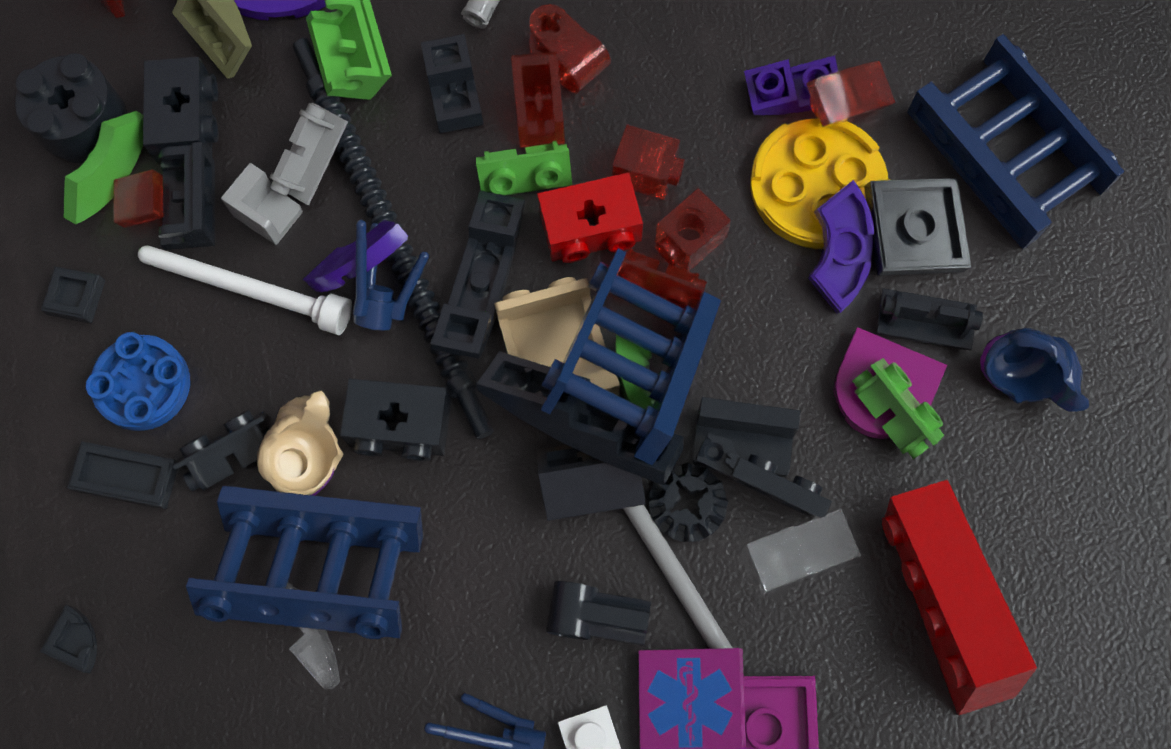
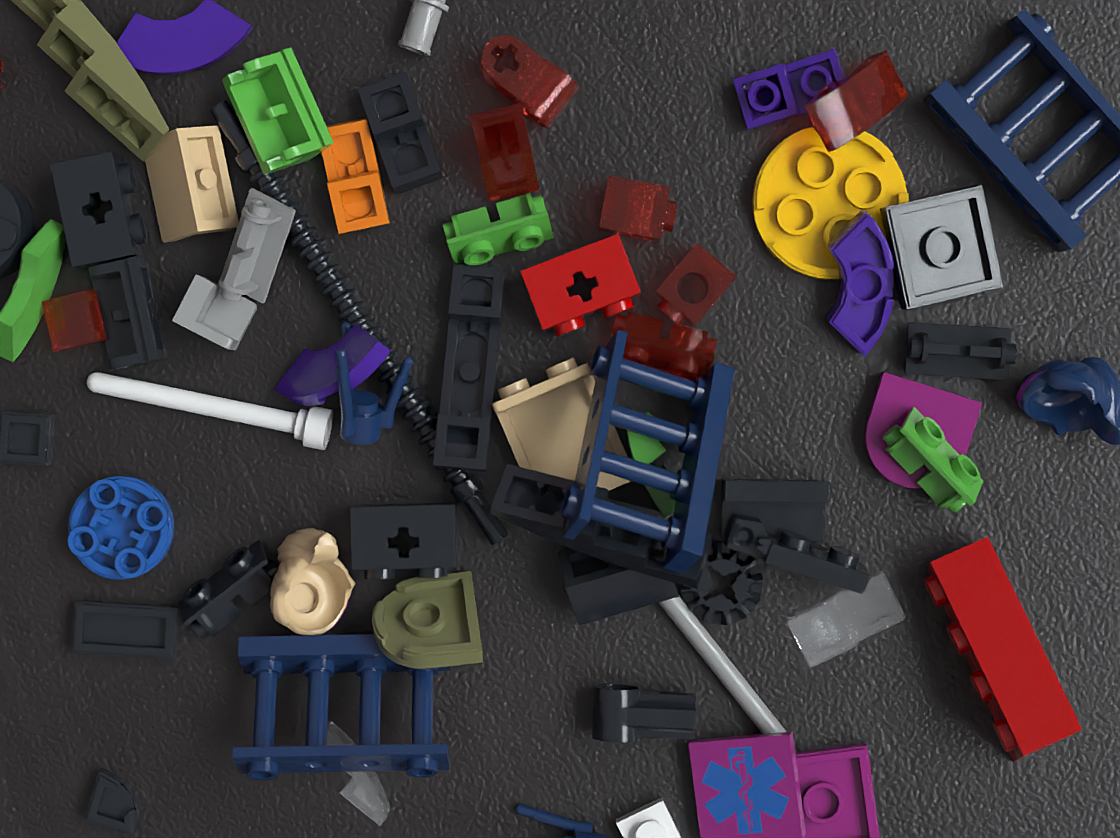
camera: 10 degrees left, 15 degrees up
(264, 98) = (191, 184): none -> tan panel
(405, 112) = (354, 177): none -> orange slope
(405, 495) = (429, 622): none -> olive tile

